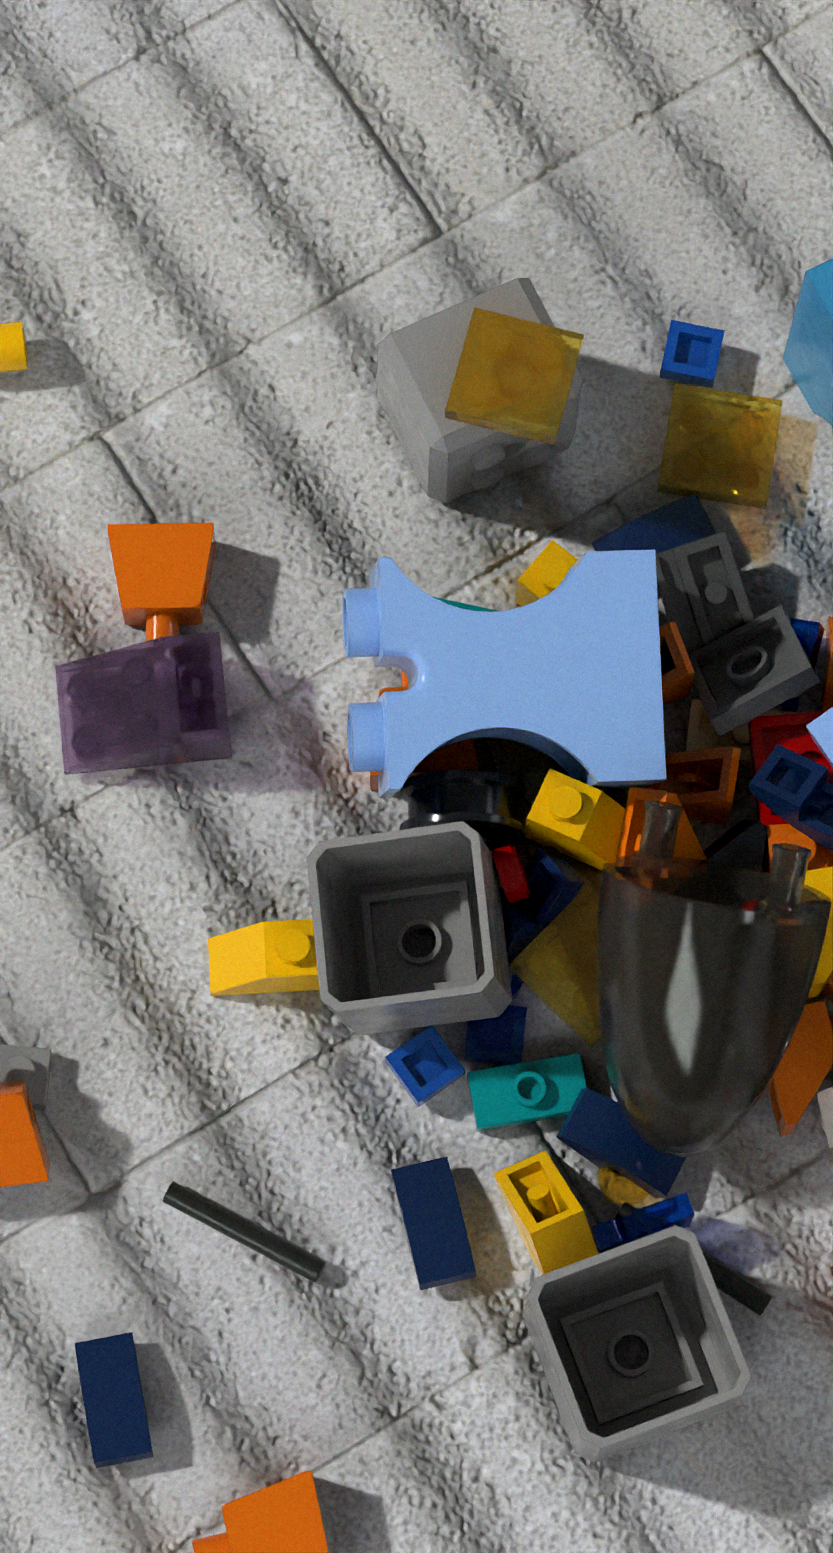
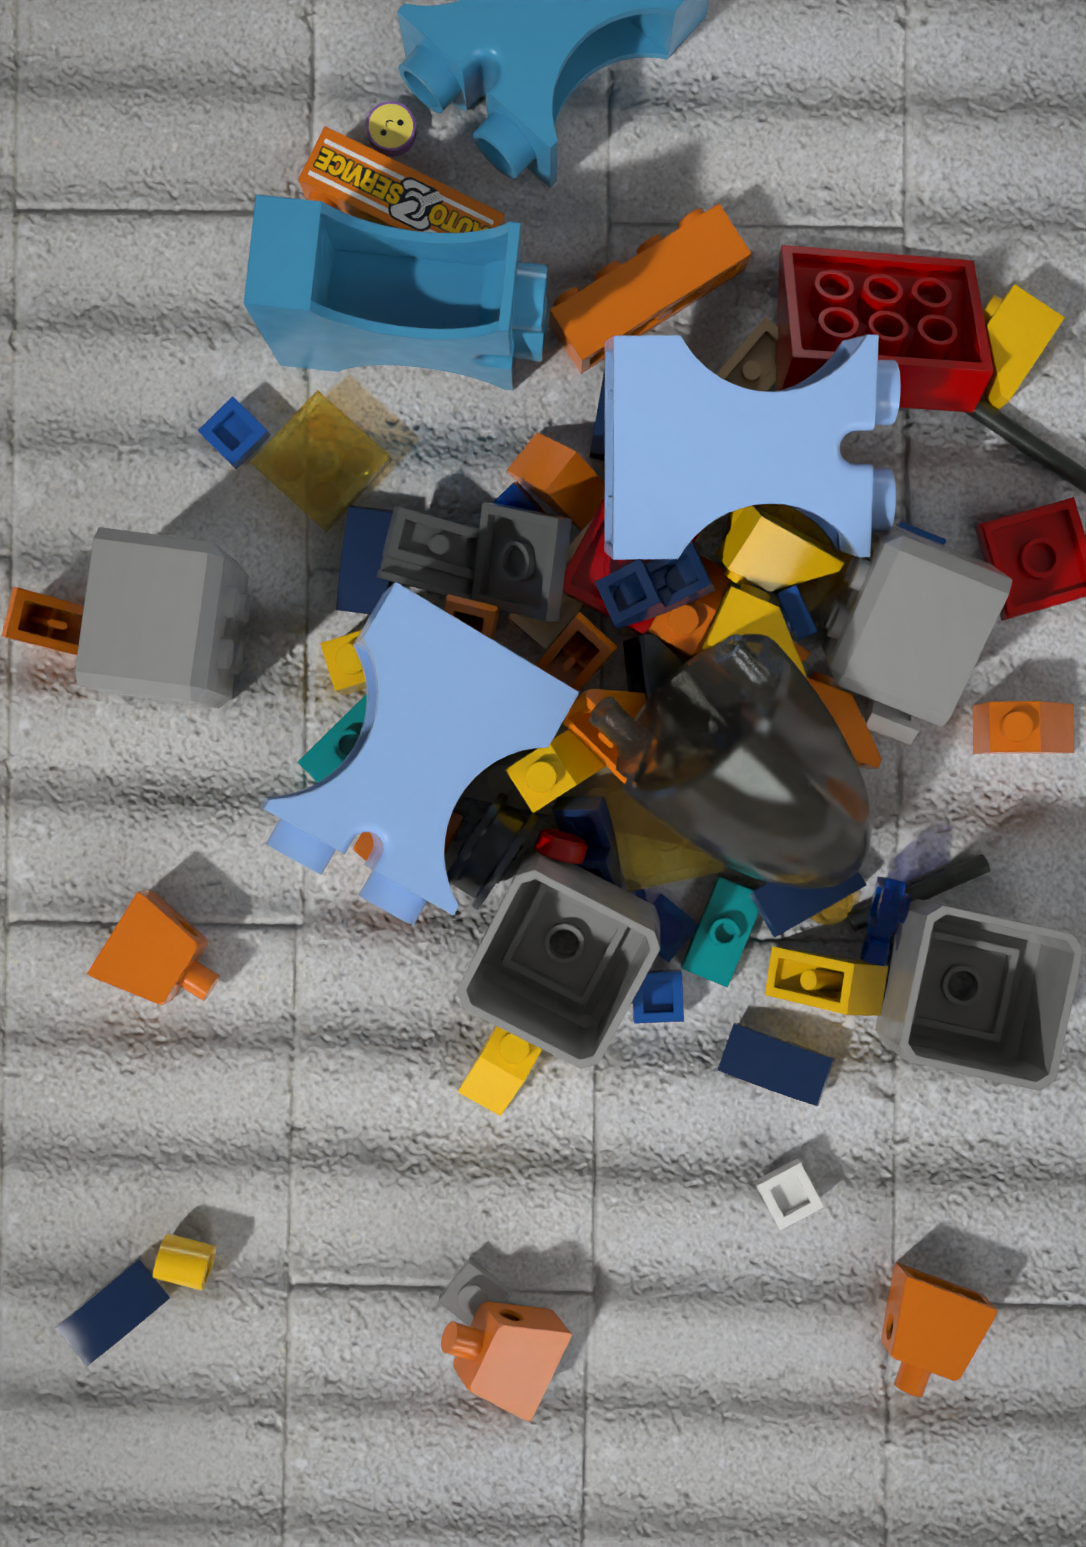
camera: 55 degrees left, 15 degrees up
(113, 1400) = (756, 1376): dark blue slope -> none
(145, 705) = (249, 1029): clear purple slope -> none
(244, 1231) = (692, 1203): pearl dark grey bar -> none
(314, 1315) = (789, 1194): none -> white plate
(403, 289) = (43, 621): none -> orange slope
(514, 376) = (176, 596): clear yellow plate -> none

